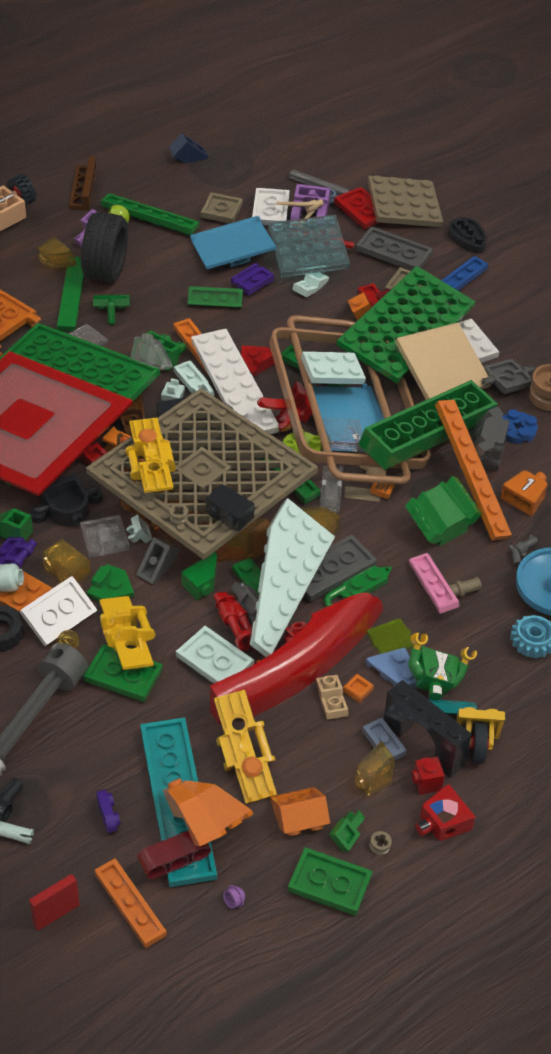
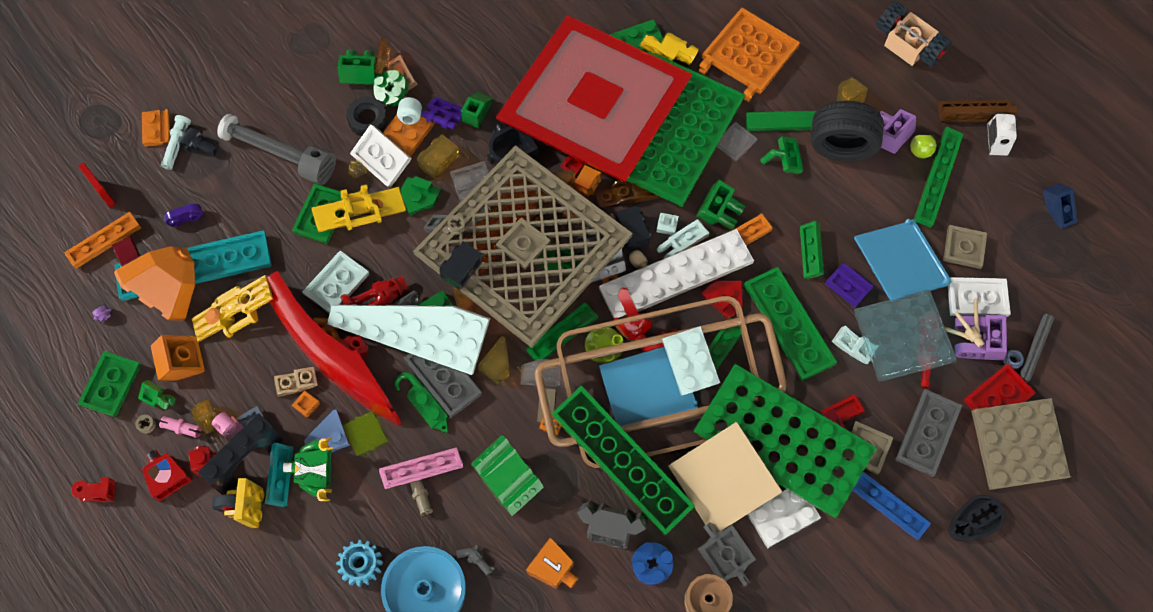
camera: 90 degrees right, 20 degrees up
(114, 169) = (1001, 128): none -> white torso
(150, 352) = (699, 192): clear slope -> none
(157, 452) = (521, 197): yellow piece -> none
(200, 577) = (417, 267): green slope -> none
(259, 325) = (790, 324): none -> green plate
(343, 434) = (610, 379): clear tile -> none
(359, 305) = (817, 394): orange slope -> none
(385, 804) = (180, 426): none -> bright pink pin
(396, 737) = (227, 425): none -> bright pink leg
(466, 893) = (94, 491): none -> red leg
(473, 470) = (563, 504): orange plate -> none

